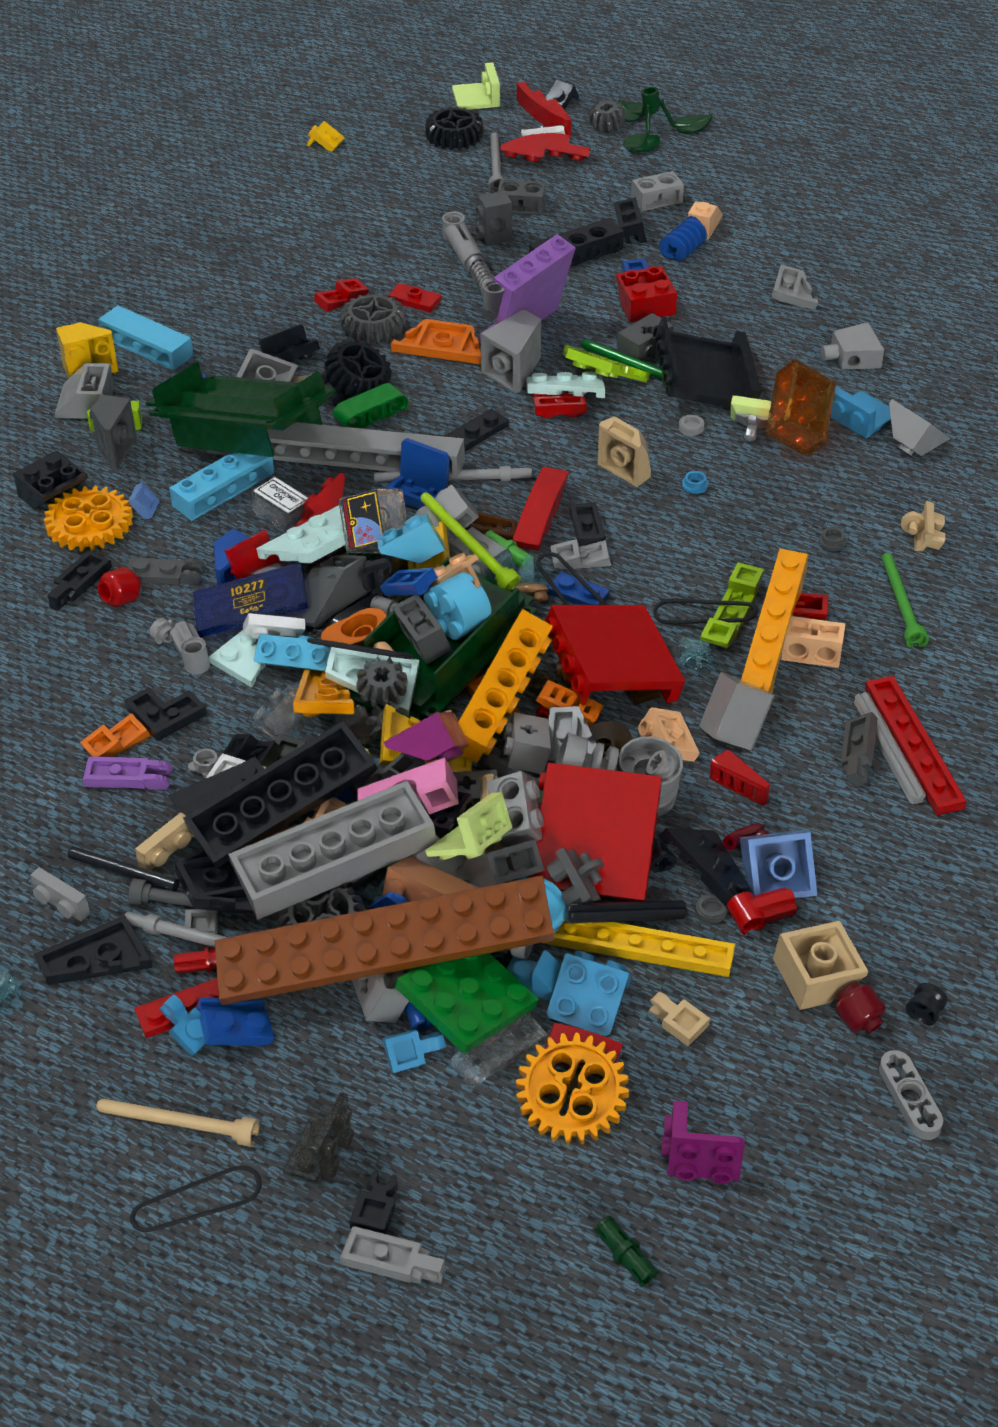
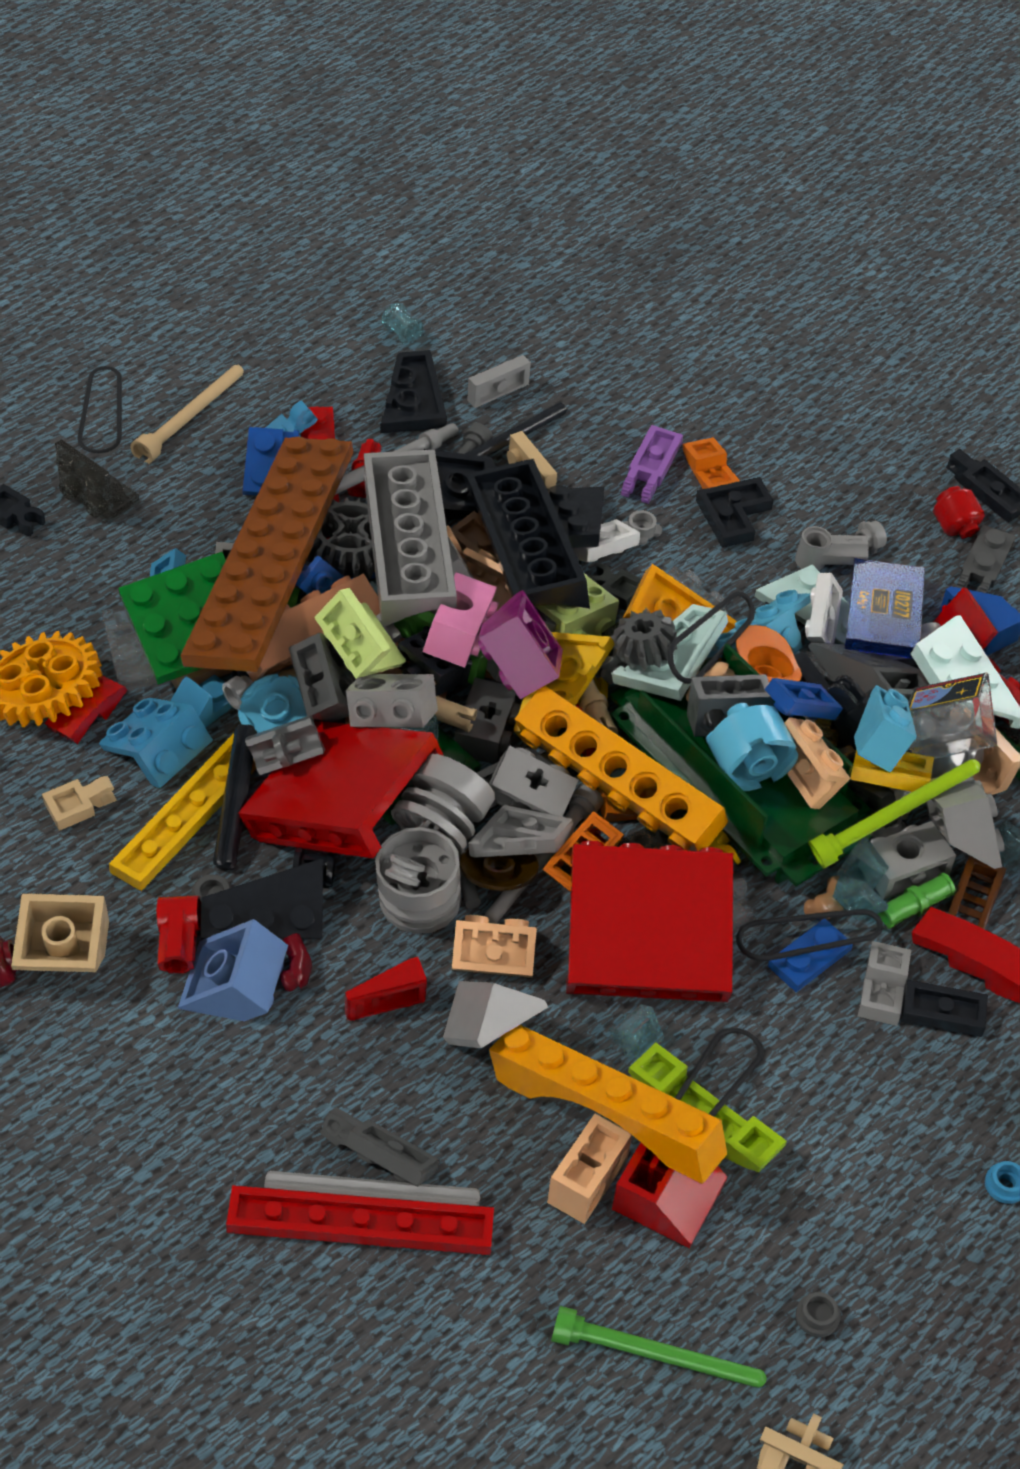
camera: 105 degrees right, 5 degrees up
(247, 747) = (634, 559): black slope -> none

